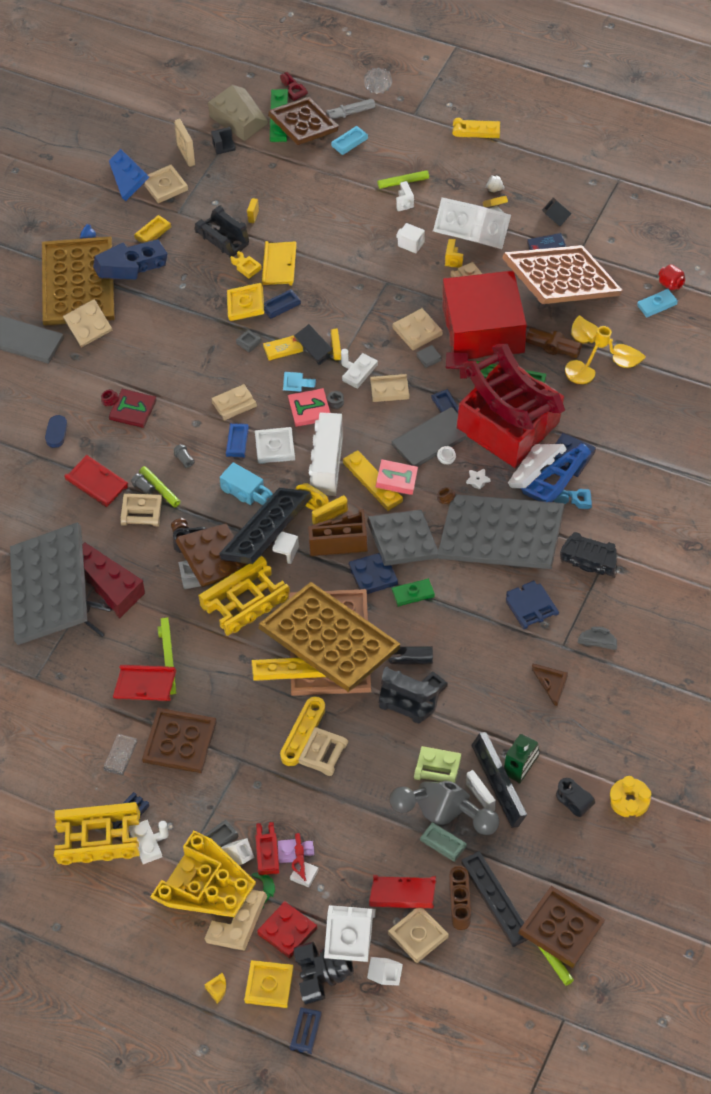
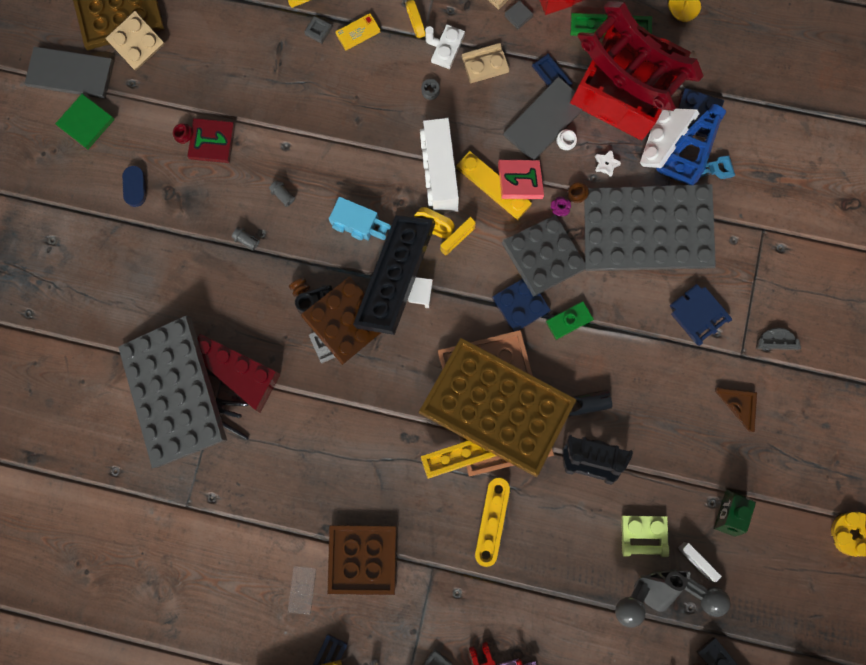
camera: 10 degrees left, 25 degrees up
(27, 376) = (84, 121): none -> green tile
(92, 479) = (186, 240): red door -> none
(138, 680) = (301, 497): red door -> none
(141, 505) = (251, 265): tan plate -> none
(159, 486) = (266, 238): lime piece -> none
(164, 633) = (314, 426): lime plate -> none
(234, 402) = (320, 112): tan plate -> none
(237, 440) = (335, 161): blue tile -> none
(237, 584) = (377, 351): yellow fence -> none
(274, 445) = (377, 159): white tile -> none
(294, 381) = (381, 75): medium azure plate -> none
(307, 406) = (404, 104): coral tile -> none
(314, 344) = (392, 24): black hinge -> none
(317, 748) = (512, 542): tan plate -> none
(339, 536) = (477, 268): reddish brown wedge -> none
(428, 509) = (560, 211): none -> magenta plate
(435, 681) = (616, 433): black tile -> none
(443, 842) = (673, 631): sand green plate -> none
(456, 361) = (554, 19): dark red panel -> none
(499, 780) = (716, 544): black plate -> none
(574, 798) = (801, 550): black piece -> none
(590, 555) = (754, 244): black piece -> none

